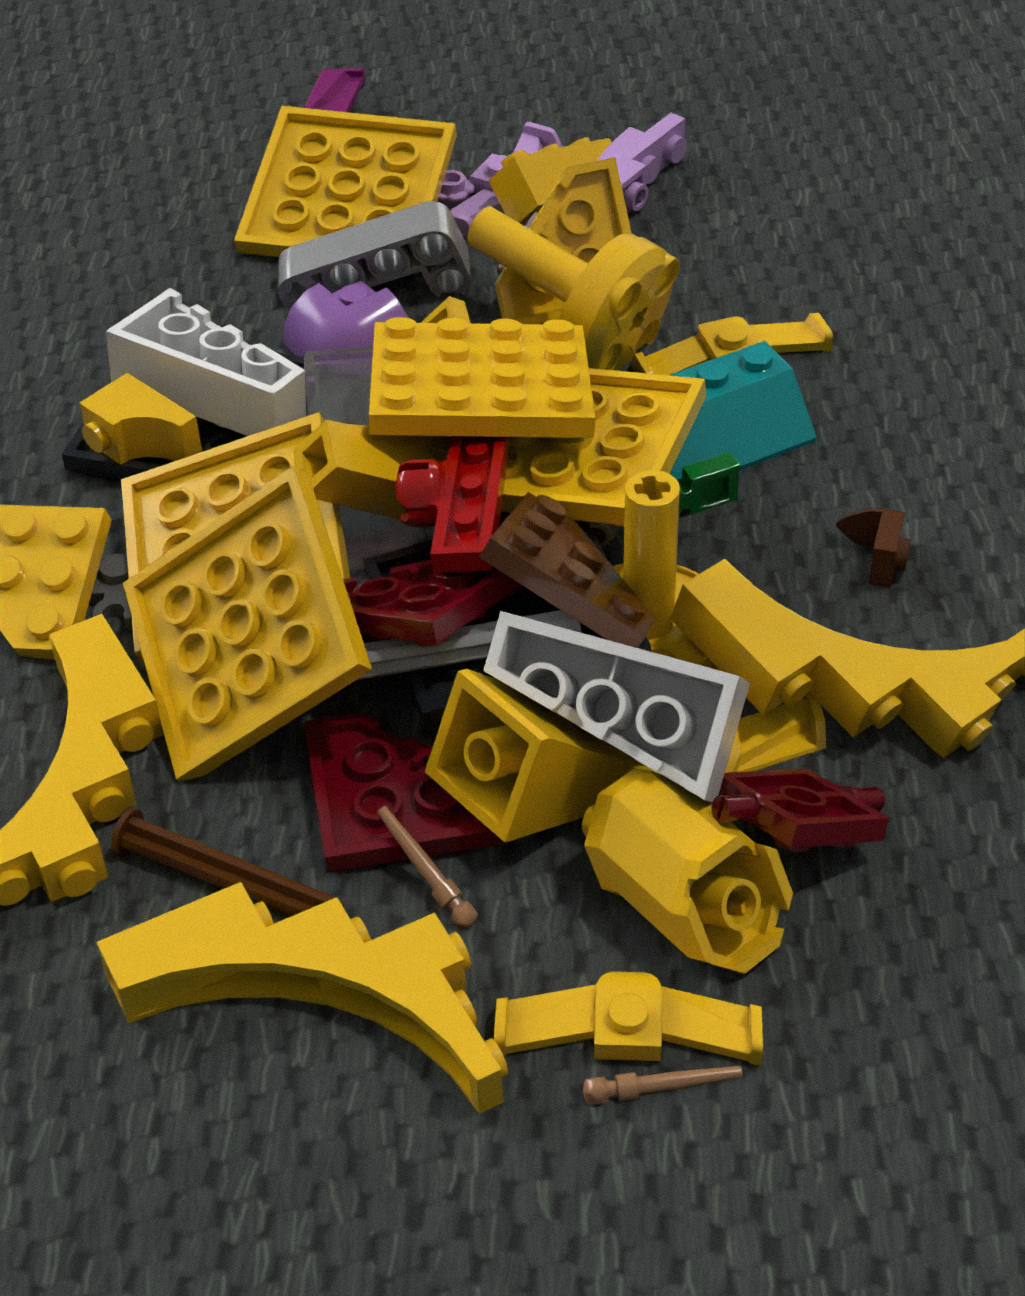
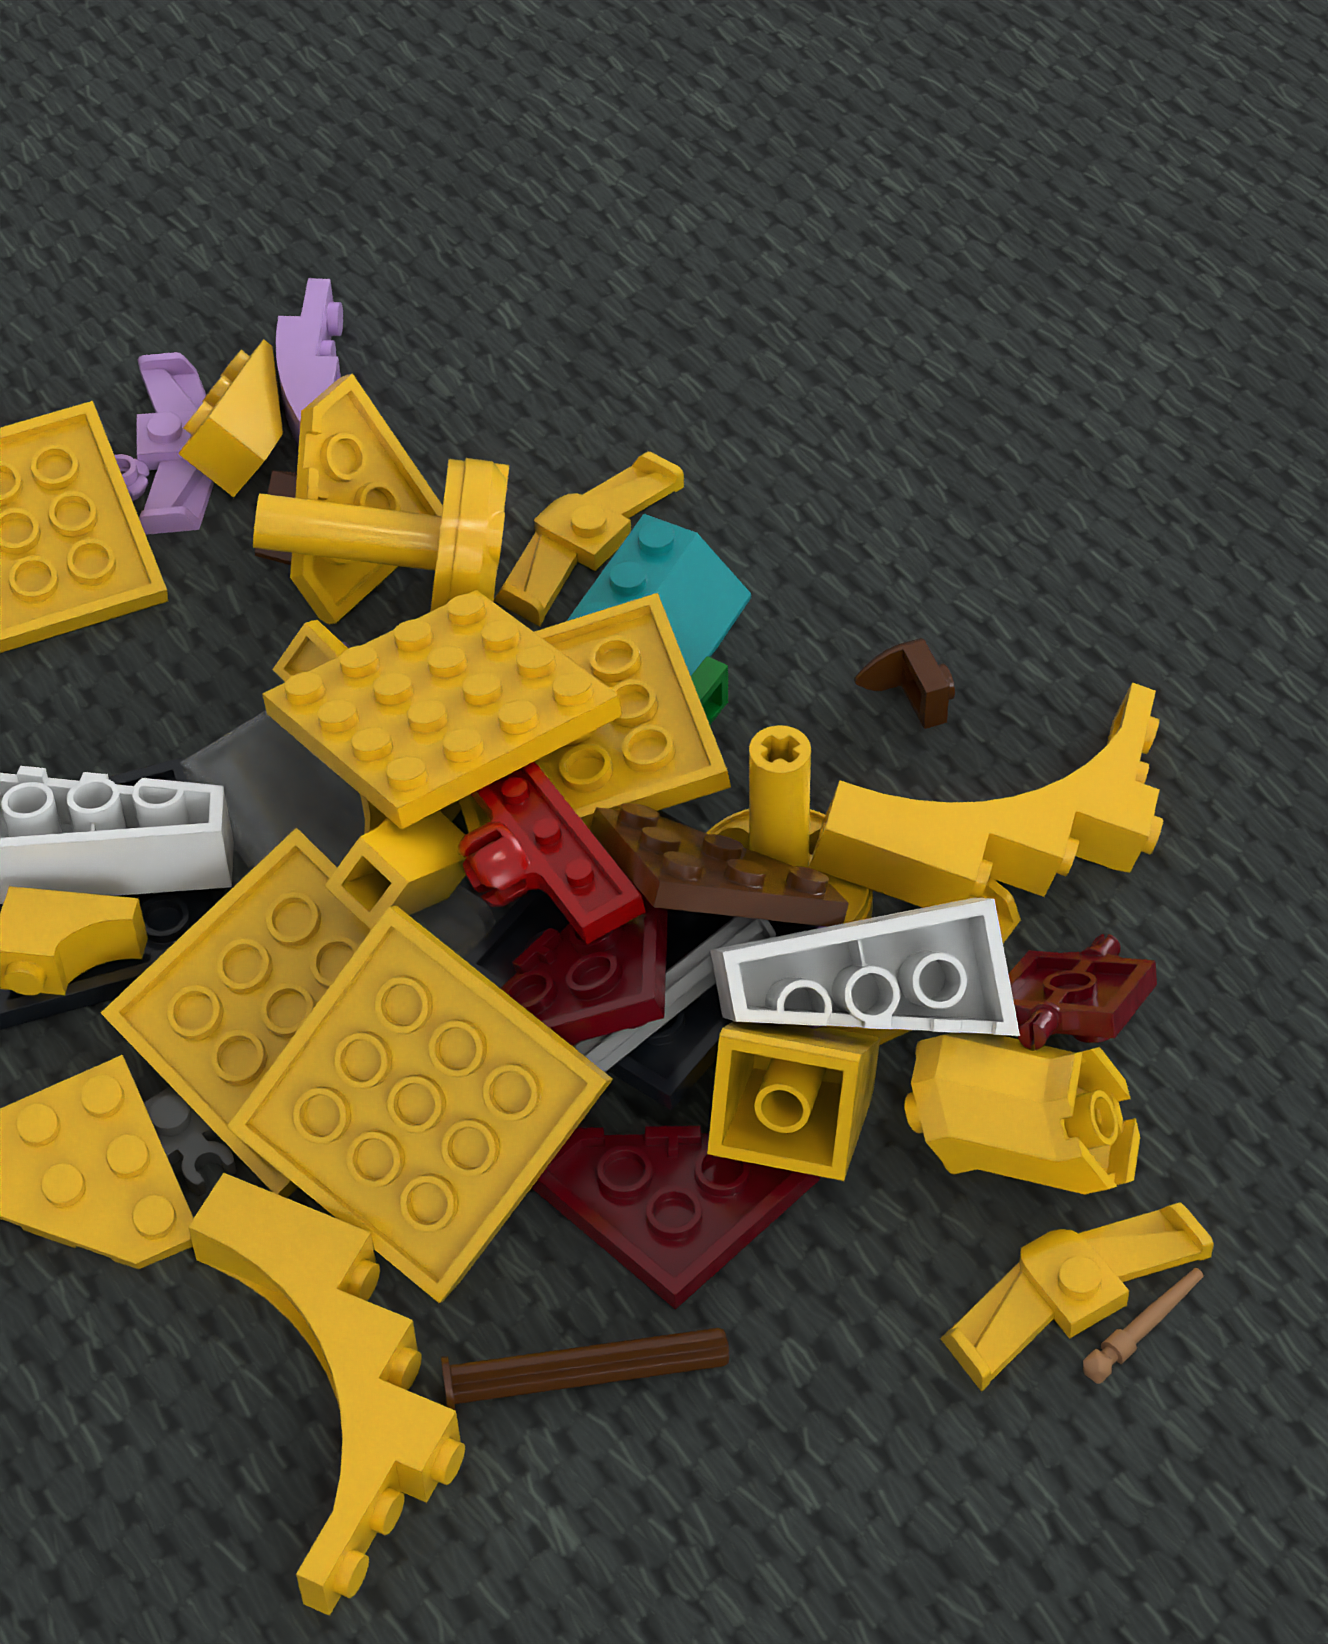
camera: 35 degrees left, 5 degrees up
(234, 950) = (853, 1373): yellow arch -> none
(339, 318) = (168, 705): medium lavender brick -> none
(381, 251) = (127, 608): light grey beam -> none
(444, 889) = (807, 1260): medium nougat piece -> none

